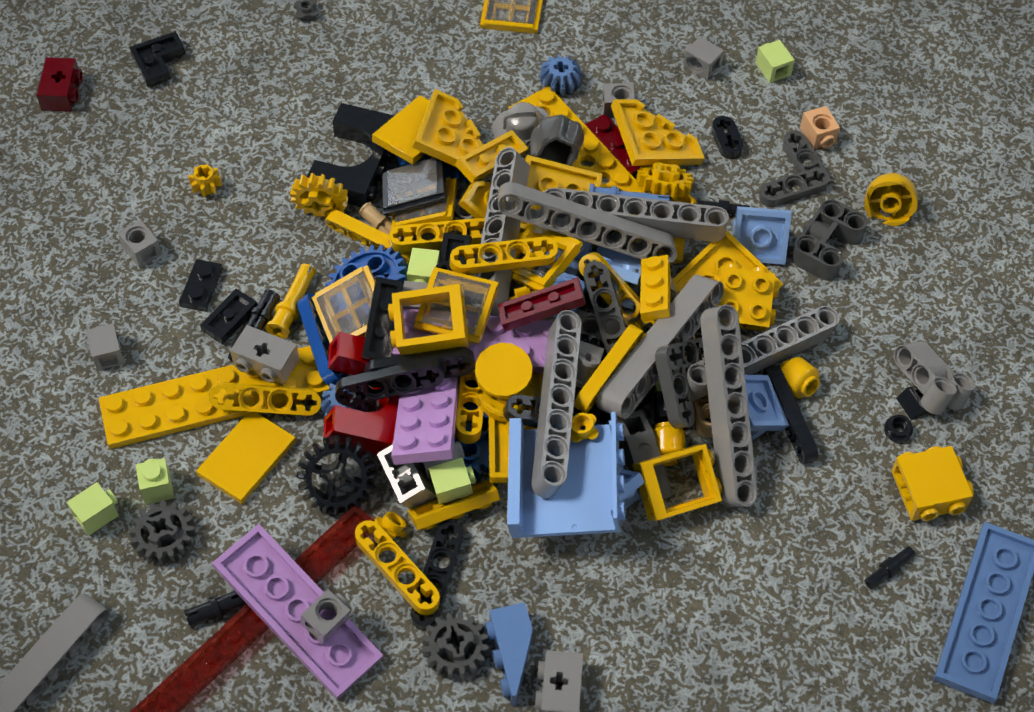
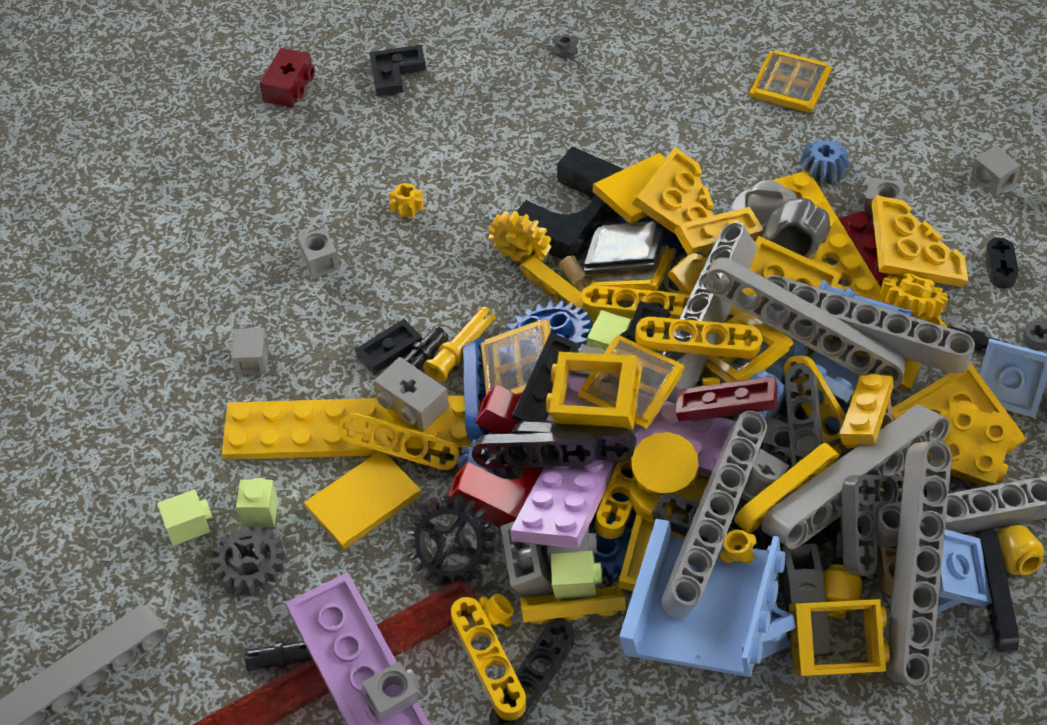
camera: 20 degrees right, 5 degrees down
(201, 285) = (369, 308): black plate -> none

